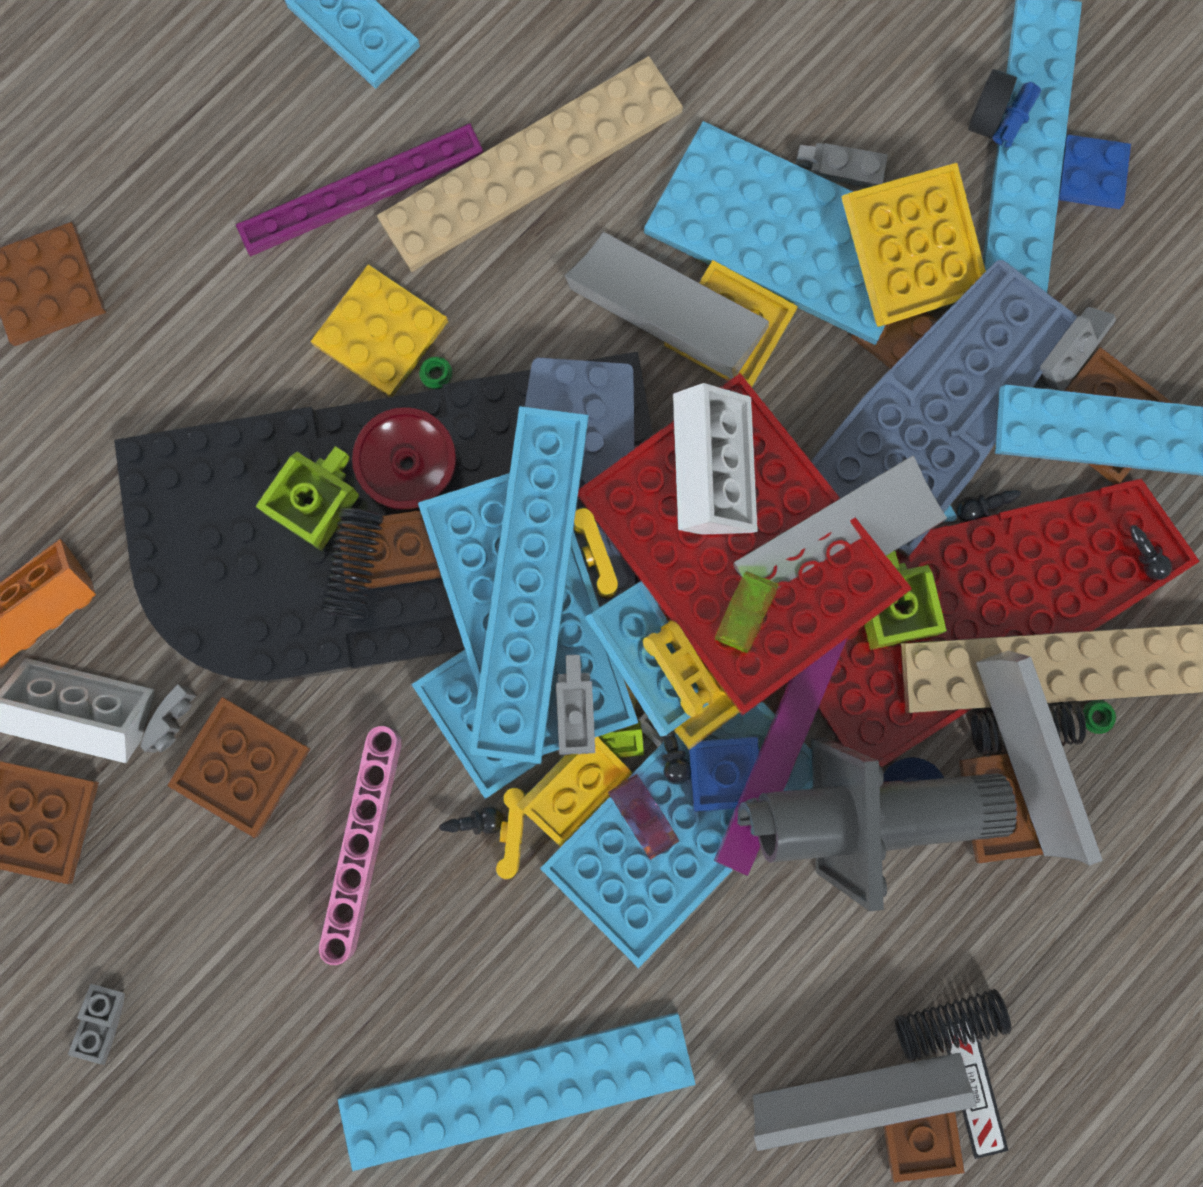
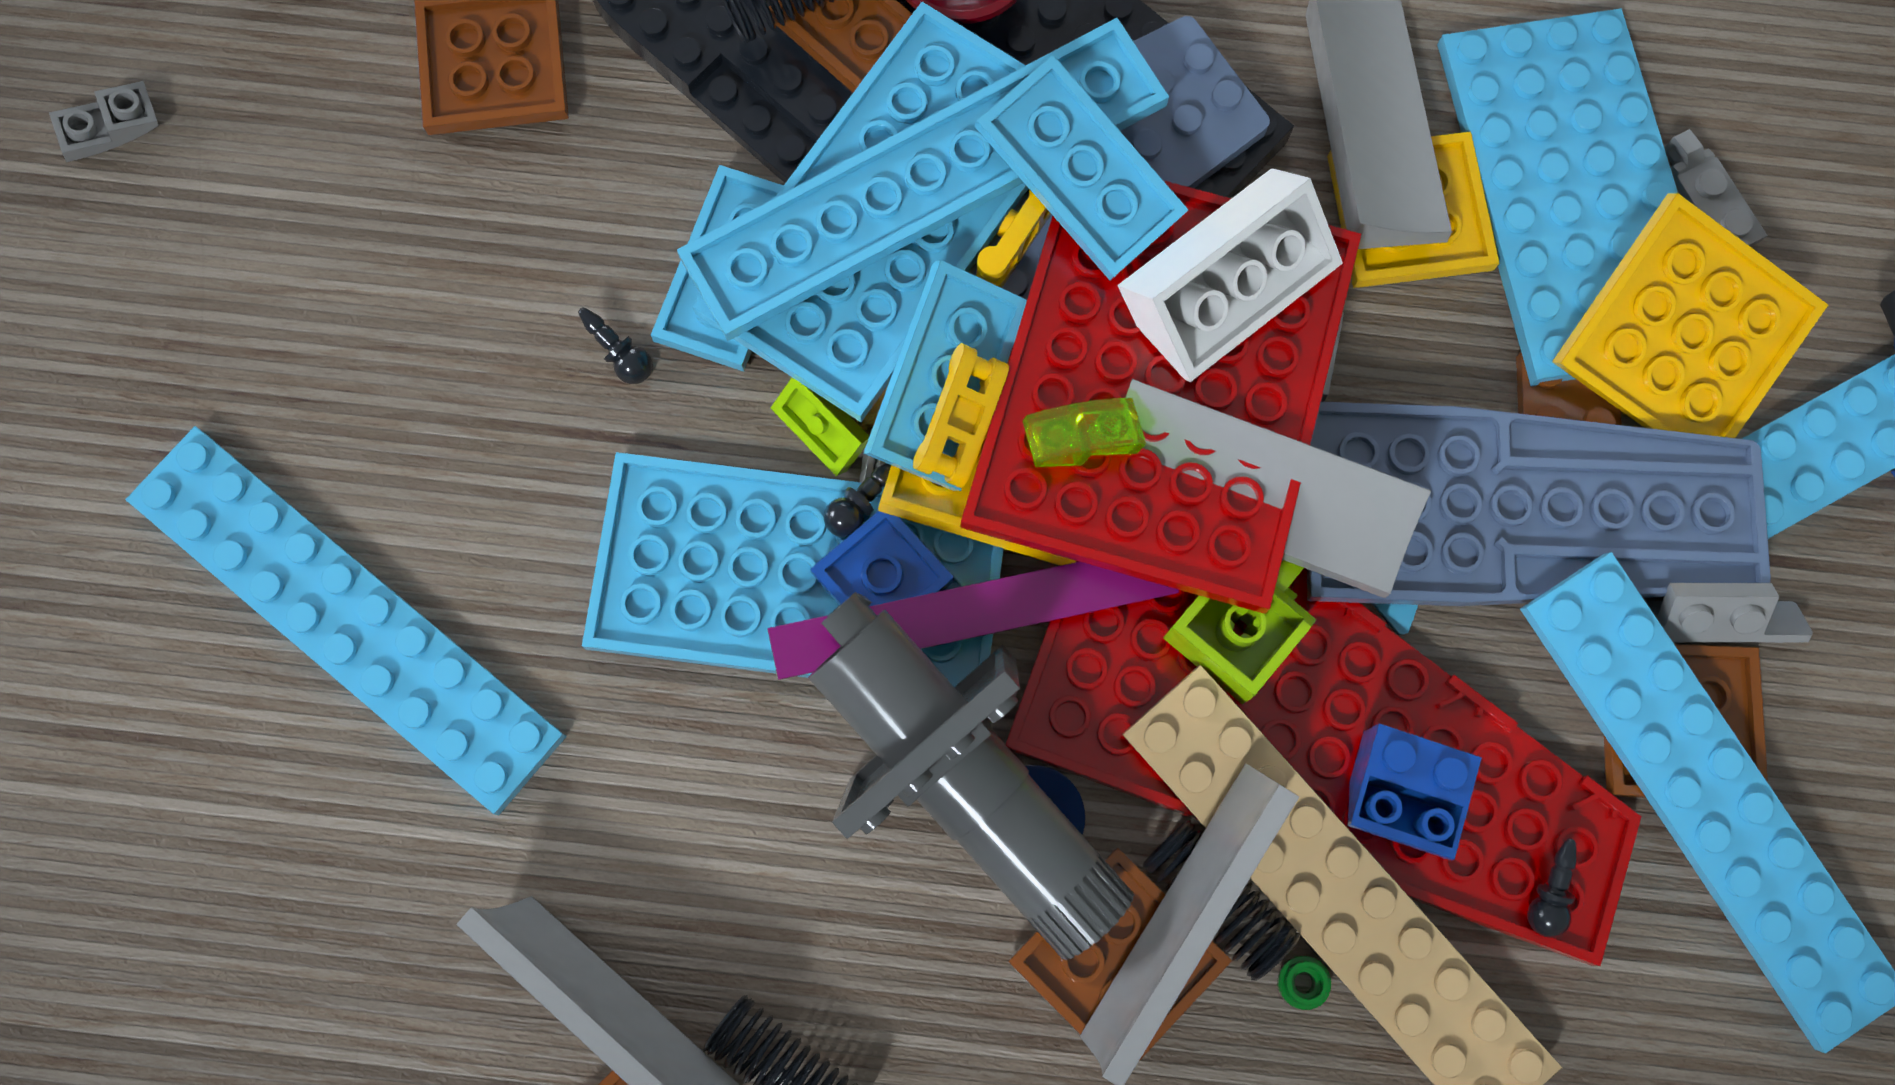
camera: 50 degrees right, 5 degrees down
(349, 858) = (476, 239): bright pink beam -> none
(511, 834) = (634, 394): yellow plate -> none
(574, 791) = (735, 420): yellow plate -> none
(575, 709) = (819, 329): light grey hinge -> none
(595, 496) = (1080, 167): none -> medium azure plate
(643, 816) = (759, 518): clear pink slope -> none
(973, 508) = (1436, 645): black bar -> none
(1050, 588) = (1411, 790): none -> blue slope

